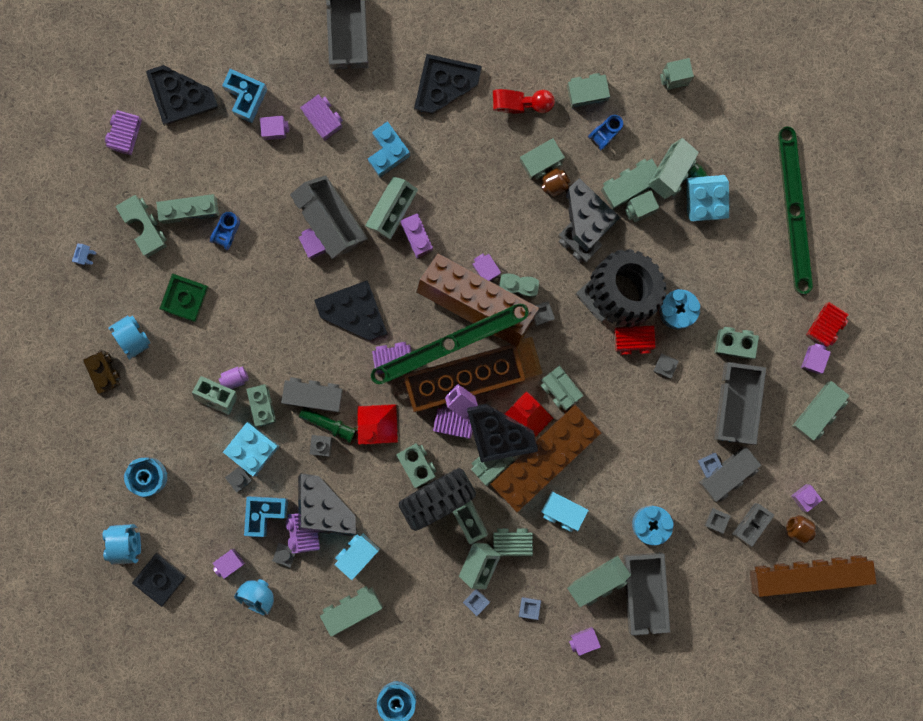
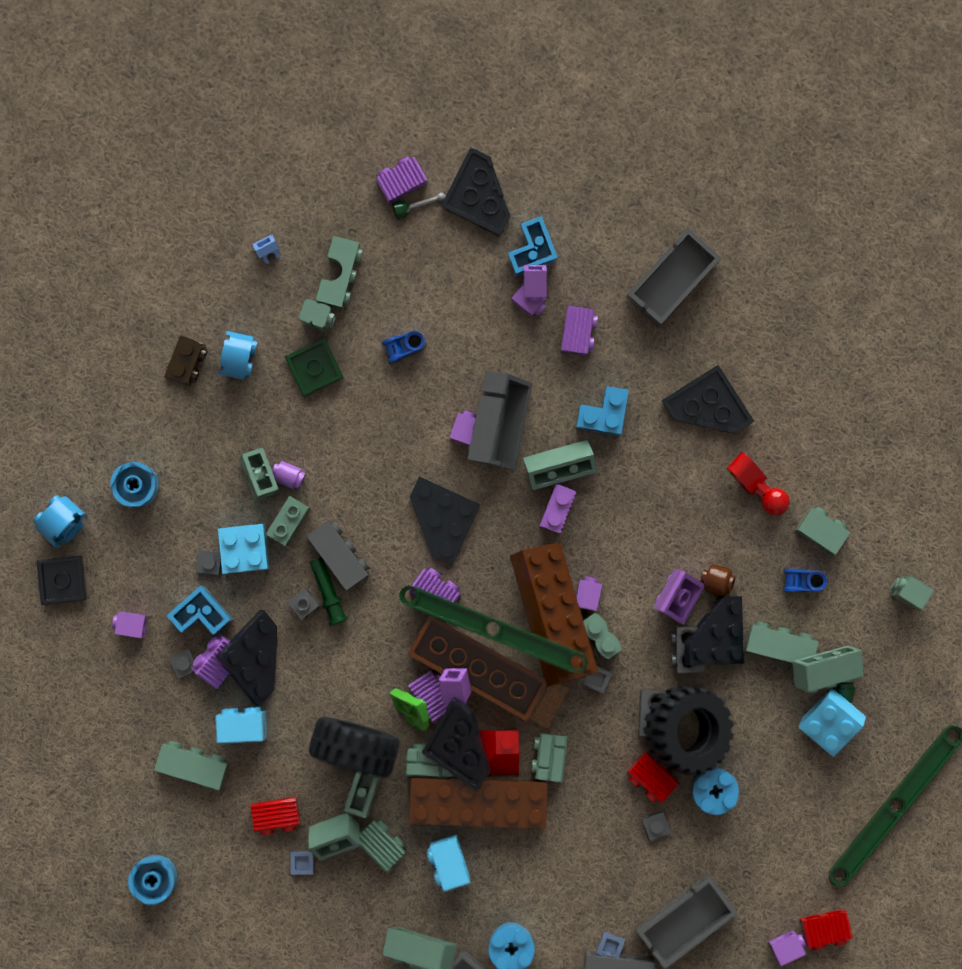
camera: 45 degrees right, 0 degrees up
(141, 149) = (402, 209): none -> hinge
(154, 264) = (317, 316): none -> sand green brick
(192, 207) = (390, 296): sand green arch -> none
(256, 596) = (126, 674): dark azure cylinder -> none
(265, 111) = (535, 281): none -> medium lavender brick
(377, 424) = (368, 632): red slope -> none
(412, 467) = (360, 697): sand green brick -> none
(431, 589) = (275, 815): none -> red brick
(449, 441) = (412, 707): none -> bright green hinge
(529, 608) = (340, 912): sand blue tile -> none
(541, 214) = (679, 596): none -> medium lavender slope
(542, 159) = (726, 549): sand green brick -> none
(641, 207) = (769, 673): sand green brick -> none
(736, 348) = (730, 870): sand green brick -> none

